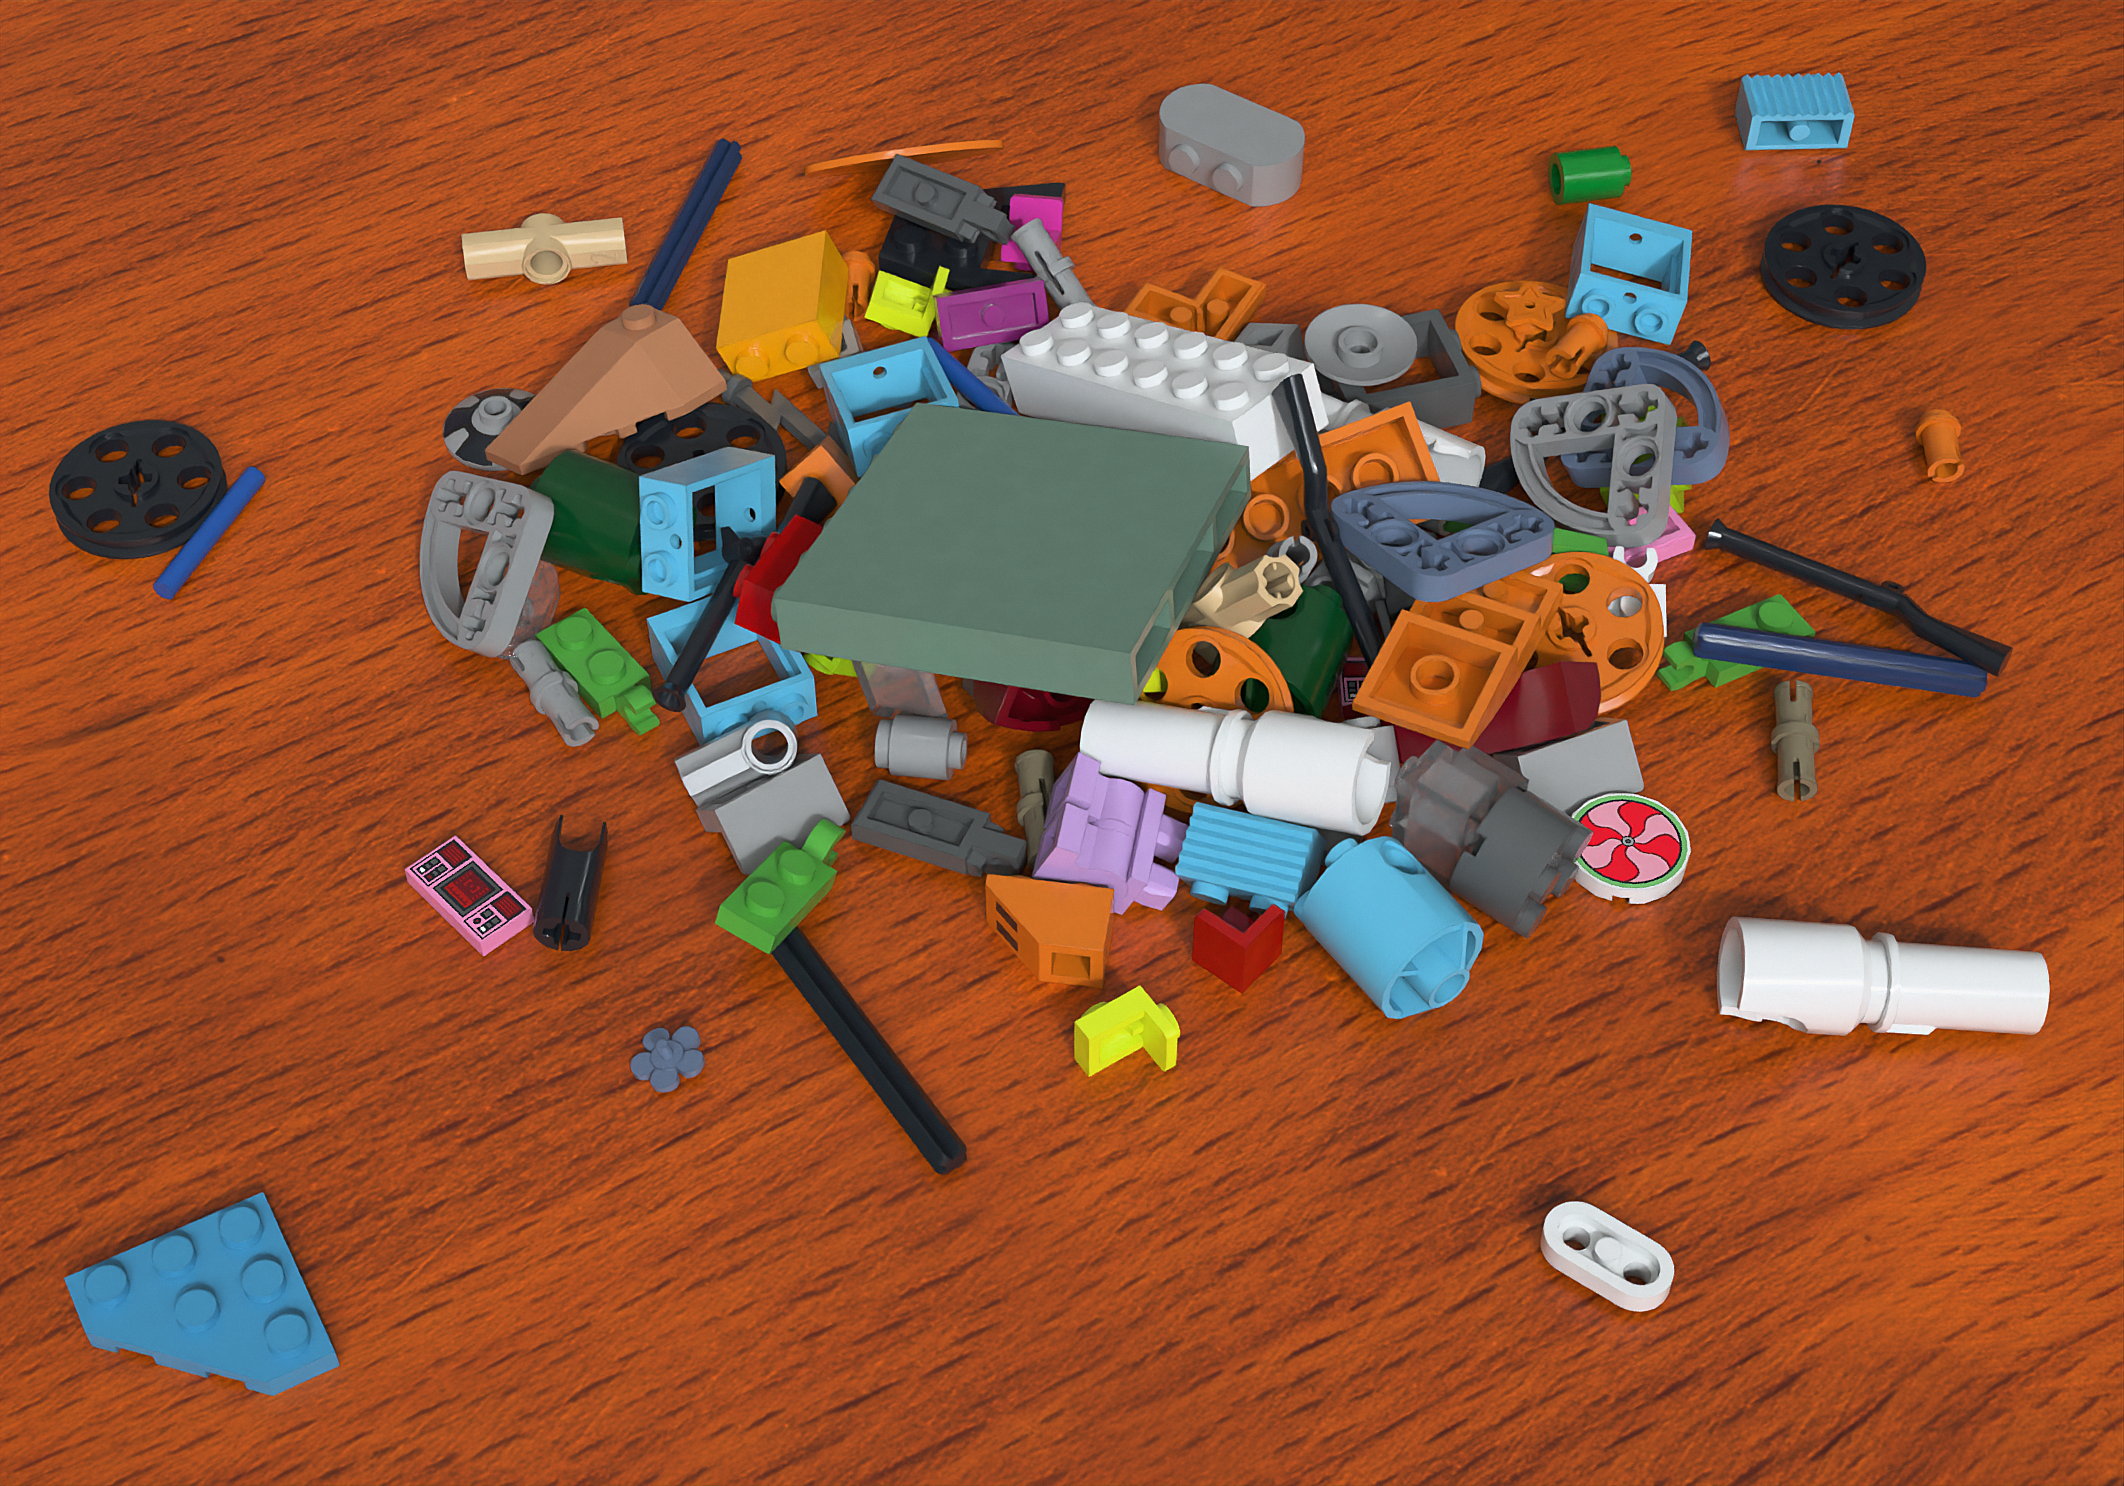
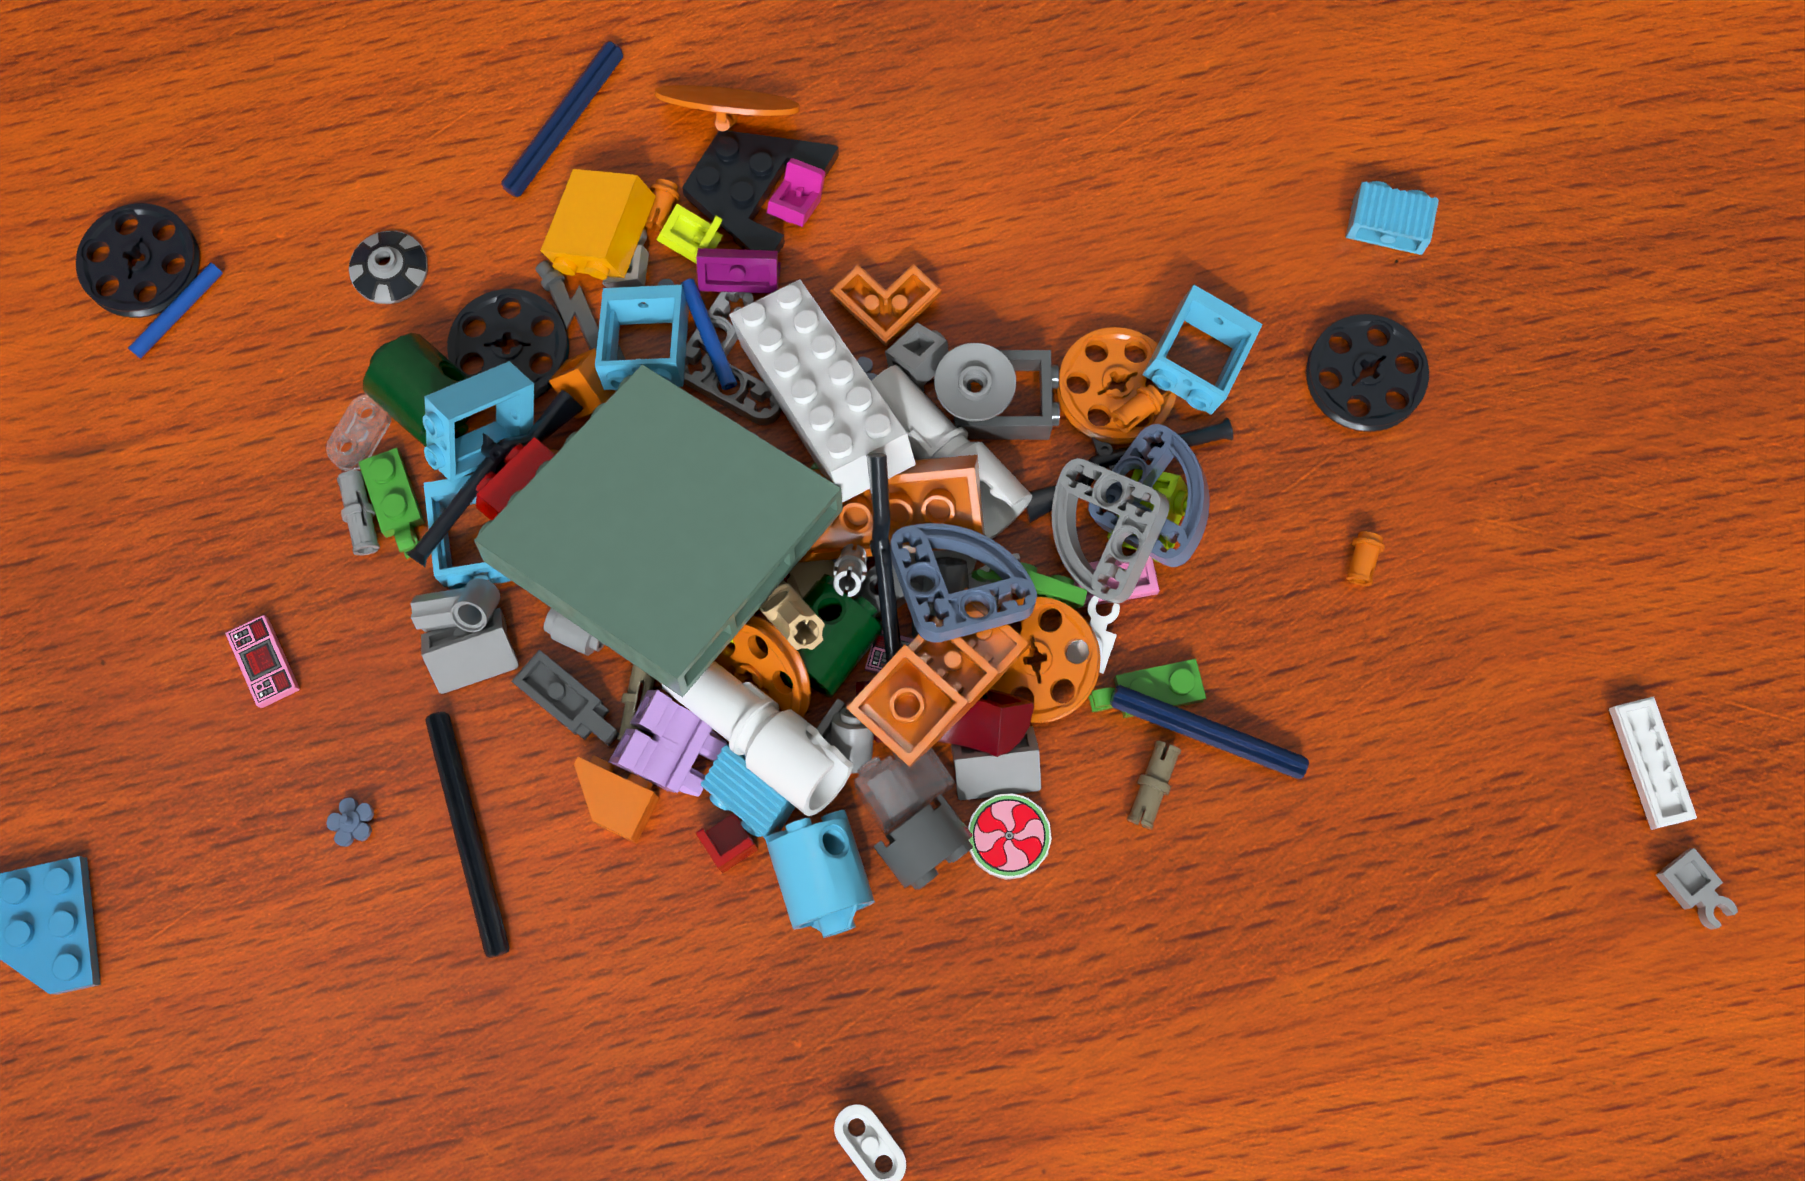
camera: 15 degrees right, 25 degrees up
(492, 604) = (327, 434): light grey beam -> none
(544, 248) = (457, 115): tan piece -> none
(569, 893) = (322, 679): black piece -> none
(619, 377) = (466, 263): nougat wedge -> none
(782, 889) = (449, 724): bright green plate -> none
(941, 202) = (732, 159): dark grey hinge -> none
(1050, 264) = (796, 239): light grey pin -> none
(1122, 1027) = (623, 888): neon yellow bracket -> none
(1231, 144) = (967, 142): light grey brick -> none
(1529, 309) = (1115, 373): orange plate -> none
(1588, 175) = (1216, 239): green brick -> none
(1833, 979) = (1091, 995): white piece -> none
(1887, 597) = (1302, 749): black piece -> none

